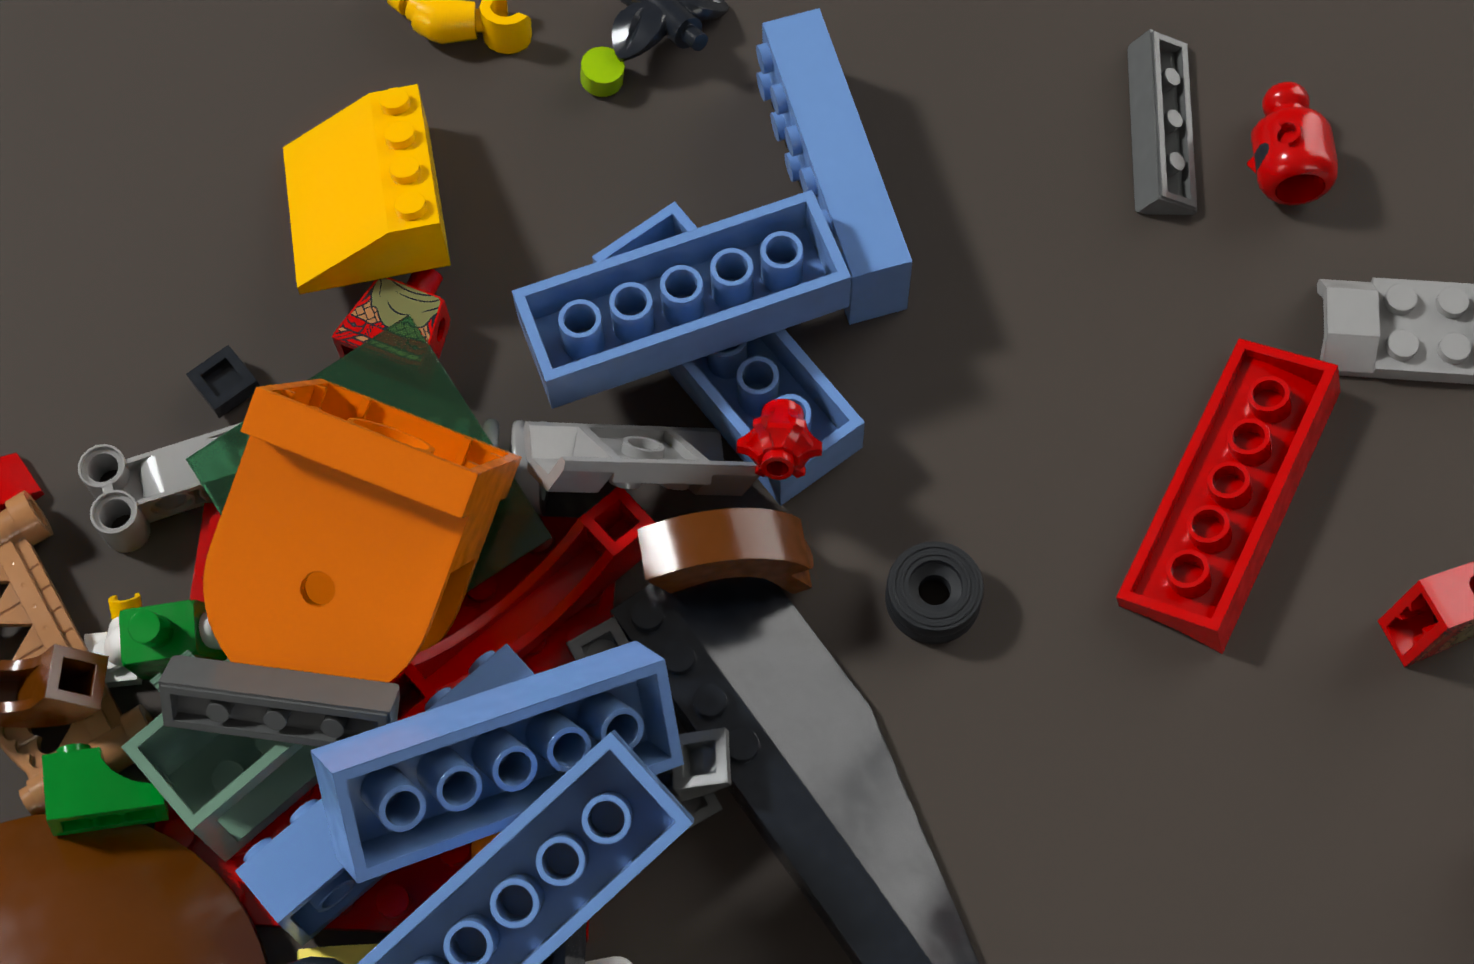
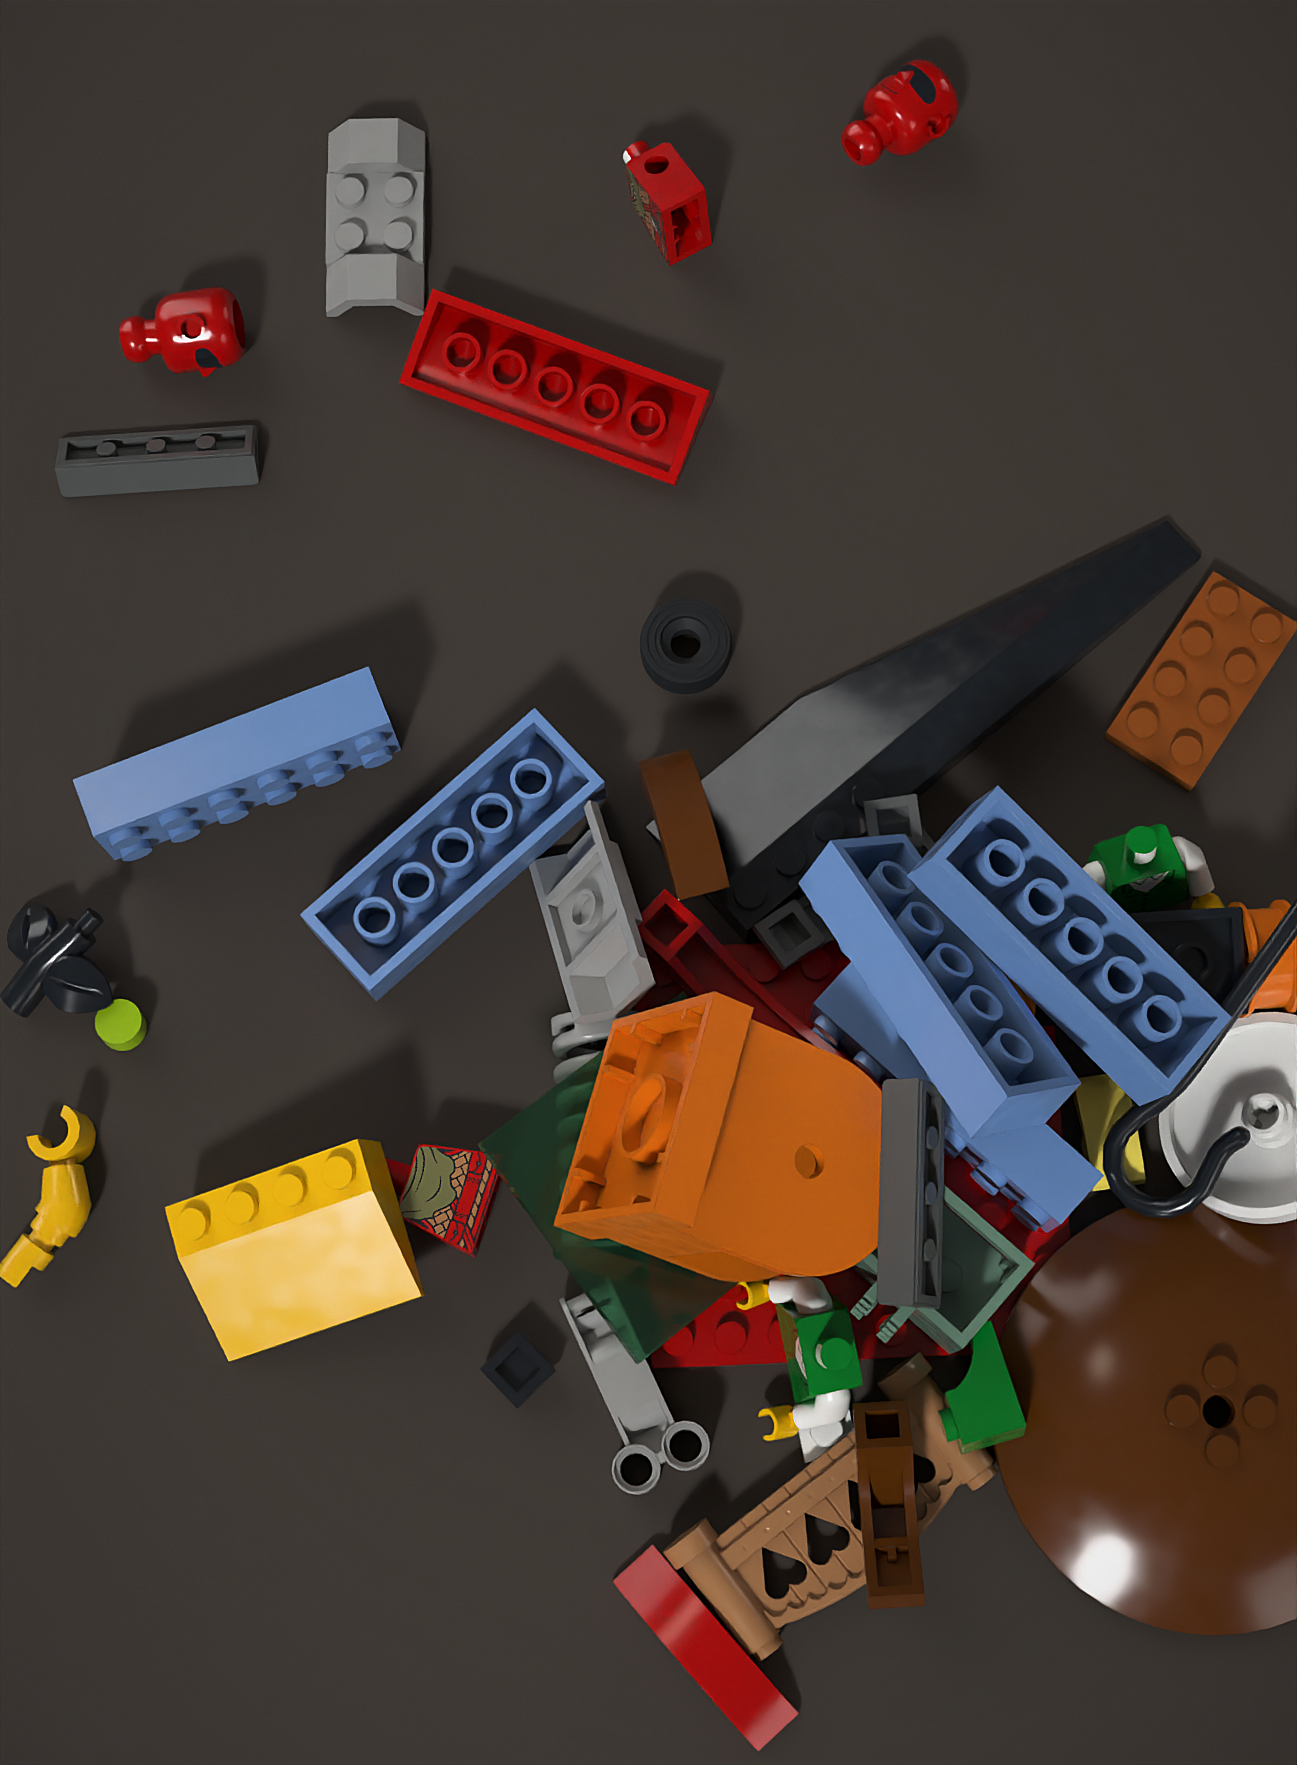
camera: 95 degrees left, 10 degrees up
(682, 298) = (430, 881): medium blue brick -> none
(780, 441) = (573, 776): red rock -> none

